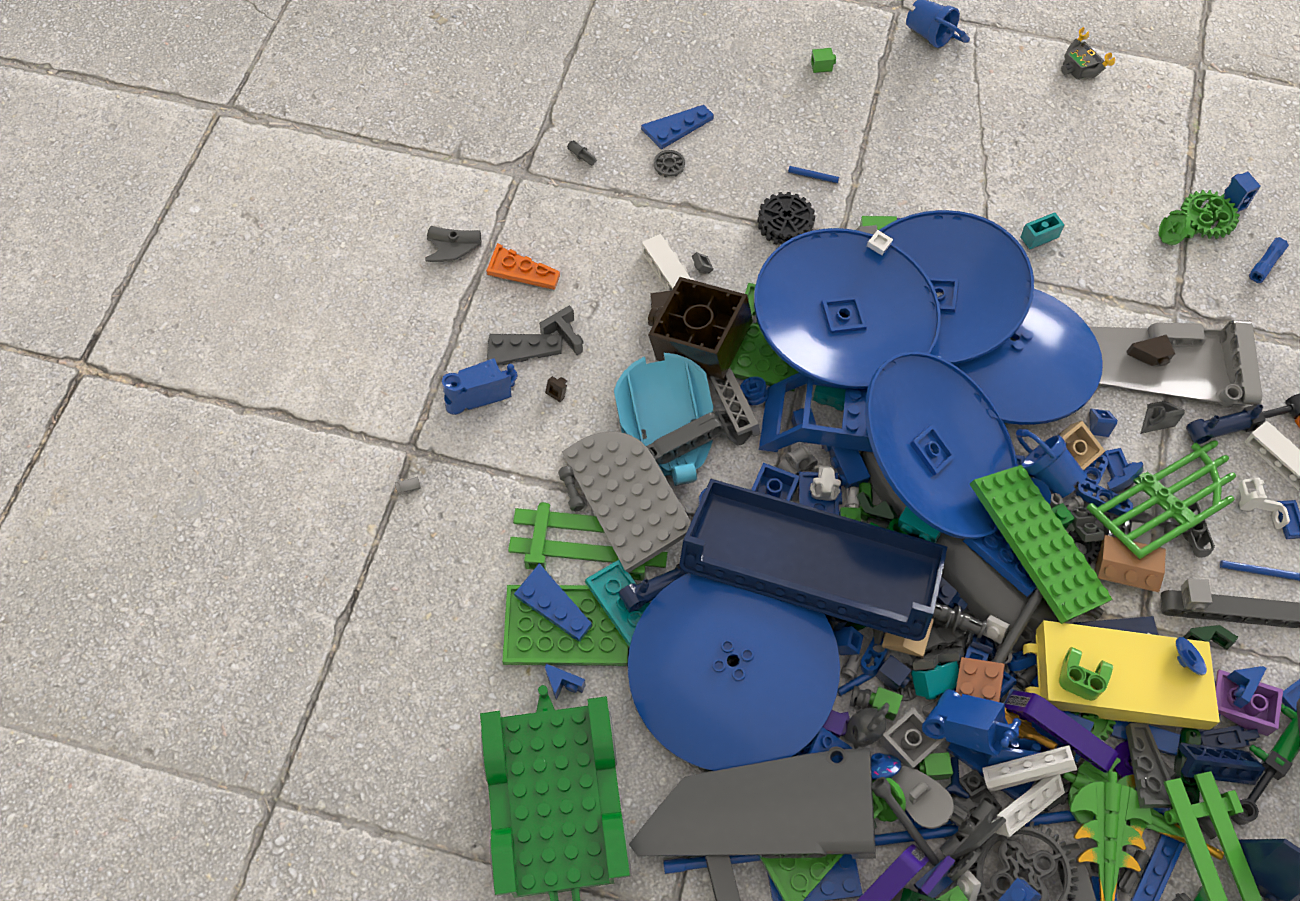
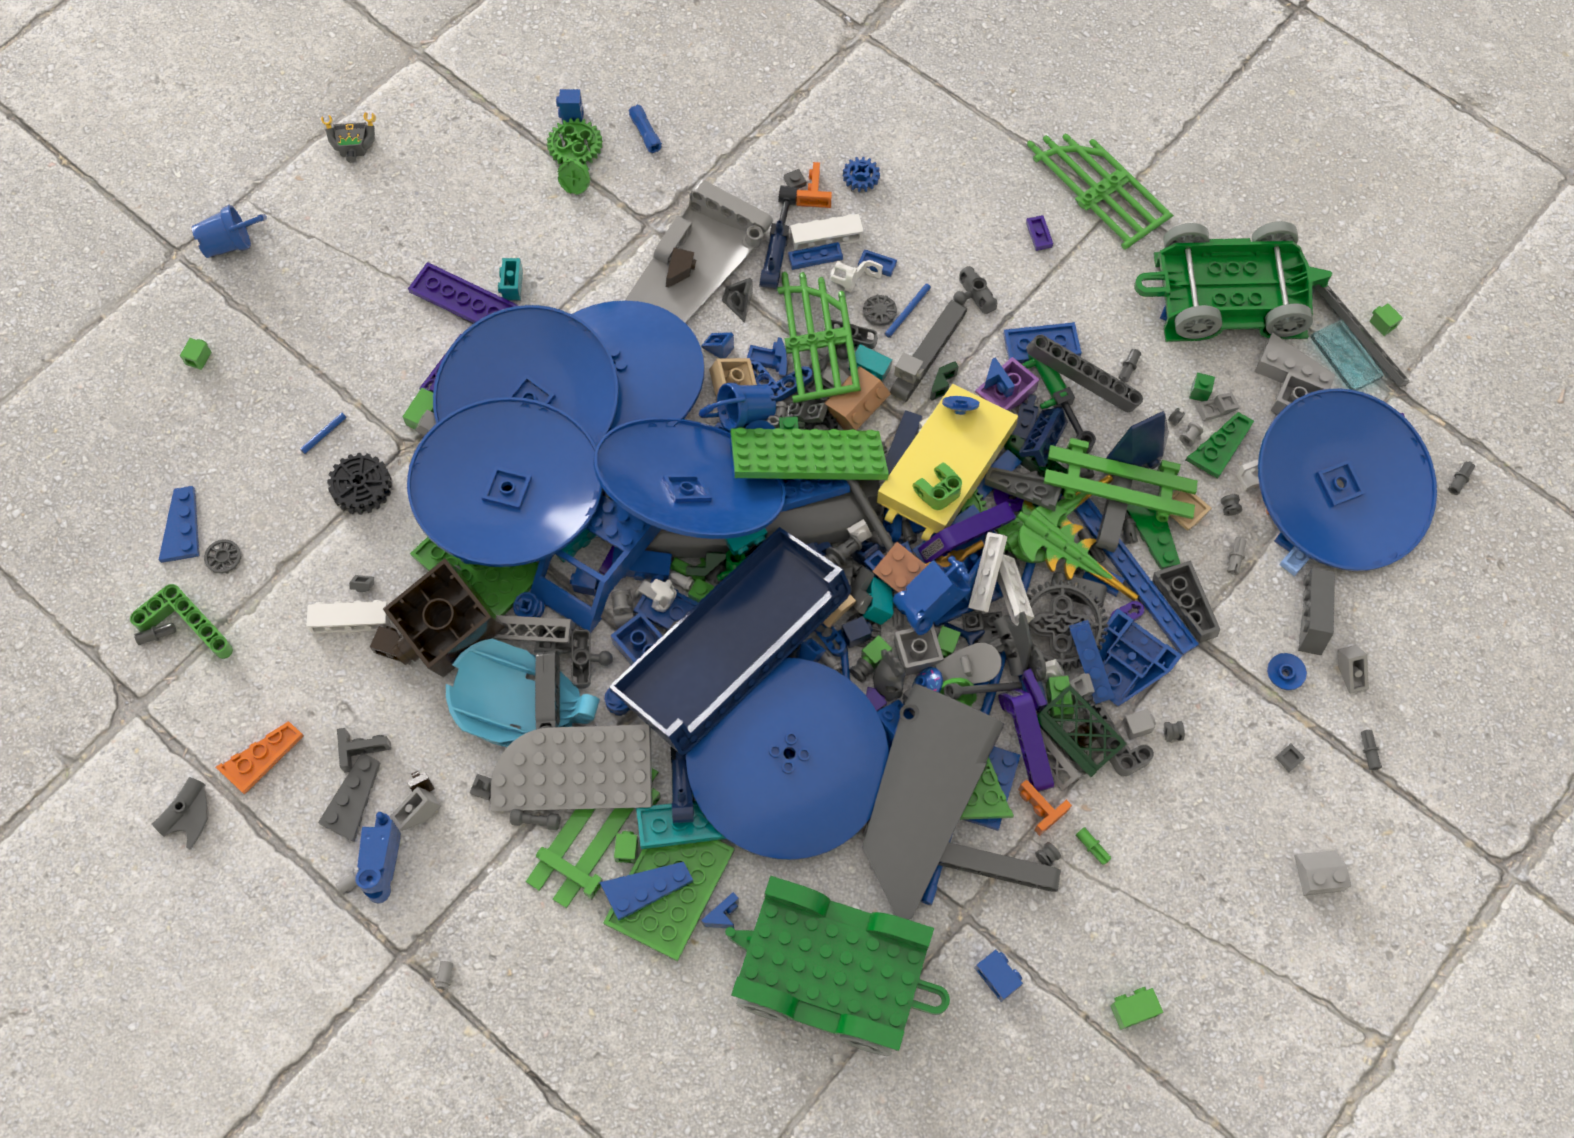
camera: 65 degrees left, 5 degrees up
(533, 394) = (415, 809): none -> light grey slope
(578, 433) = (481, 787): none -> dark grey tile
(581, 569) = (626, 847): none -> bright green brick
(613, 152) = (190, 615): none -> bright green beam
(723, 460) = (583, 669): none -> dark grey piece
(879, 242) = (458, 416): white plate -> none
(1000, 197) = (456, 294): none -> dark purple plate
(1176, 878) = (1113, 518): none -> dark grey piece
(1178, 561) = (873, 362): none -> teal brick
(1242, 544) = (879, 310): none -> dark grey wheel
(1254, 461) = (815, 256): none -> blue tile

